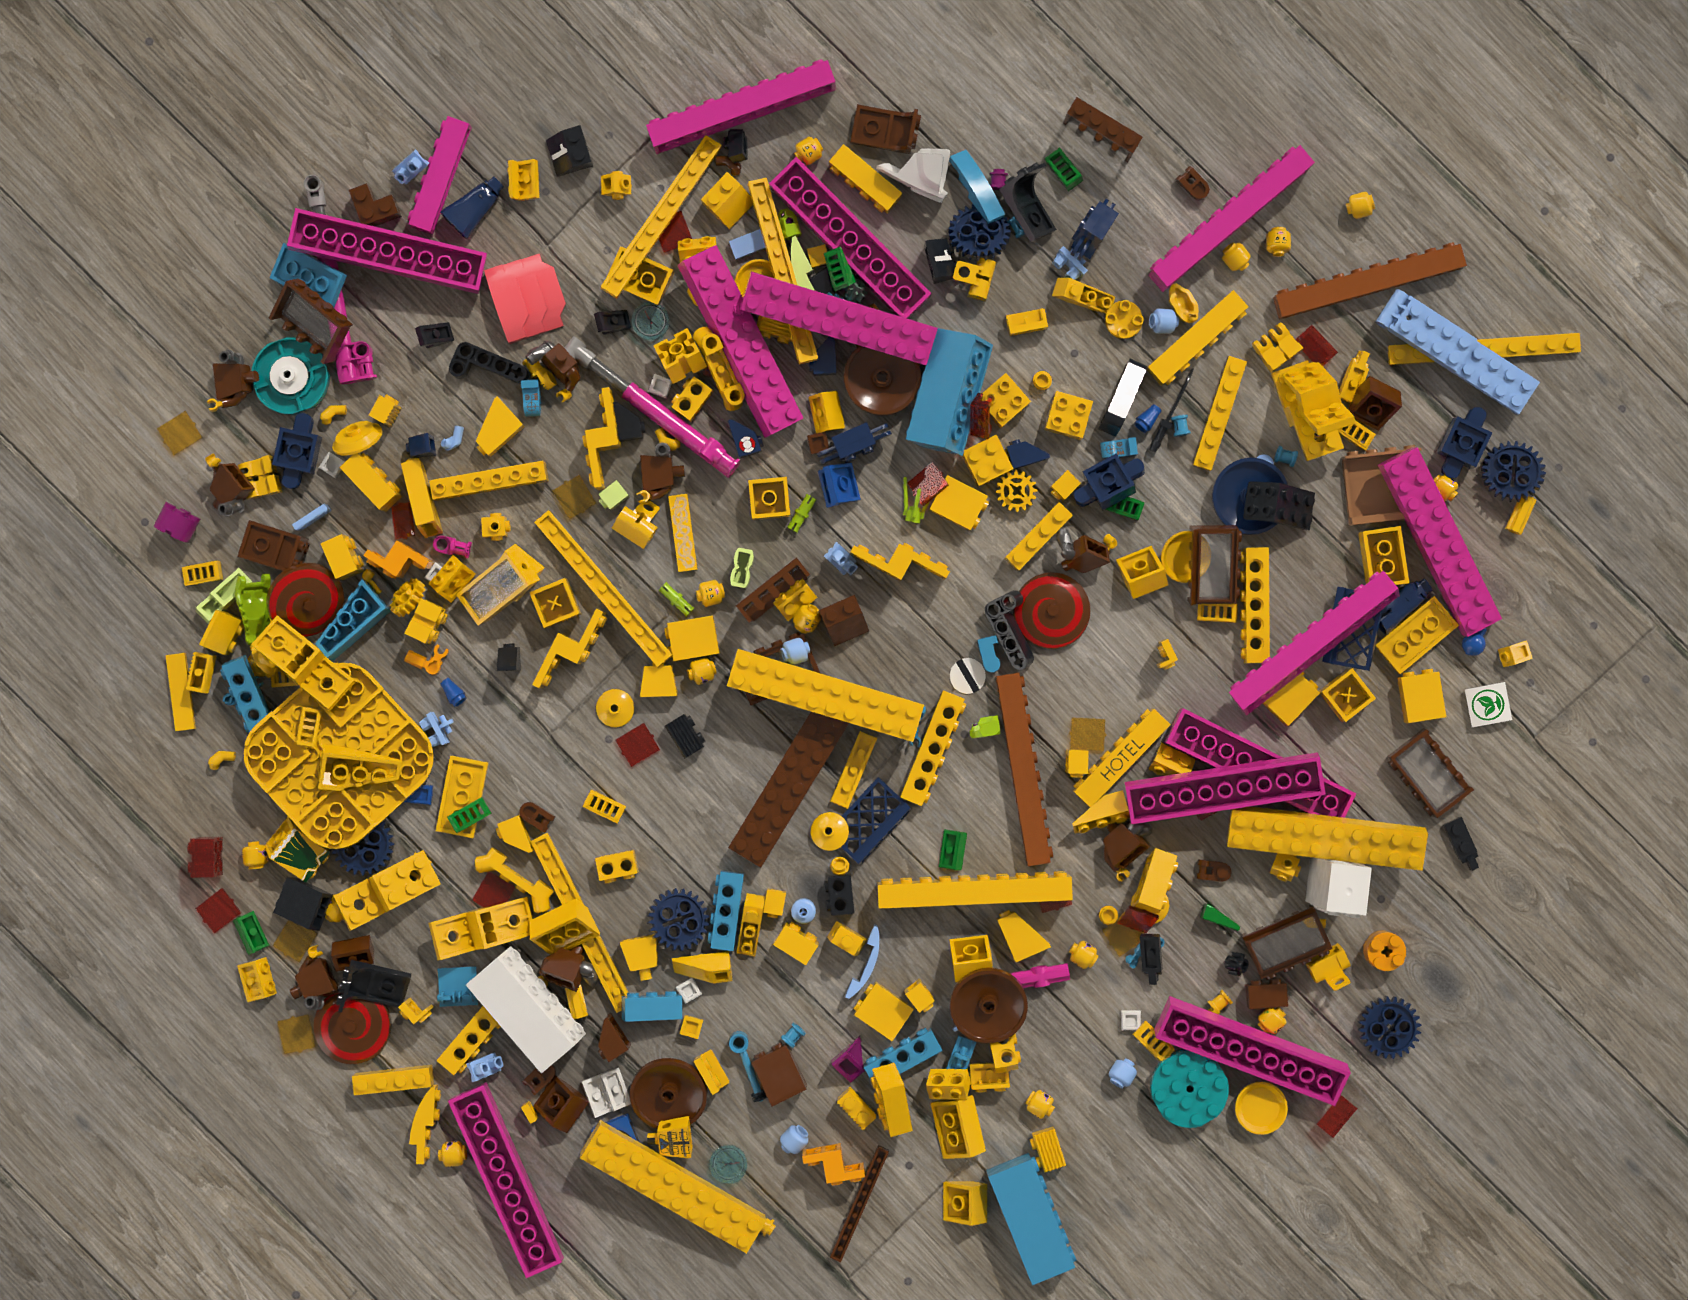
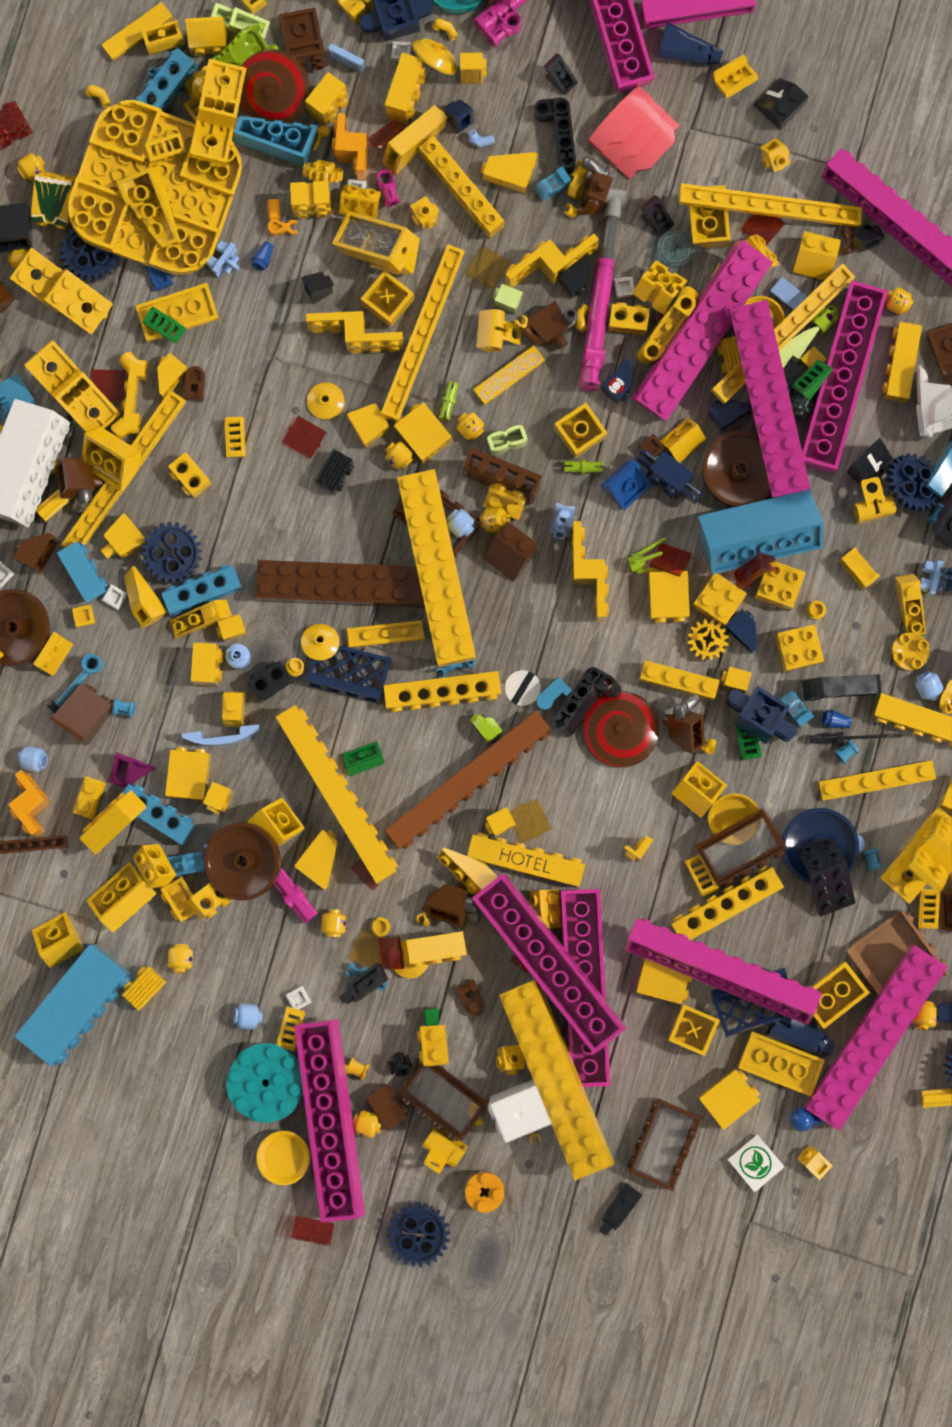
camera: 65 degrees right, 5 degrees down
(1238, 926) = (434, 1045): none -> yellow bracket

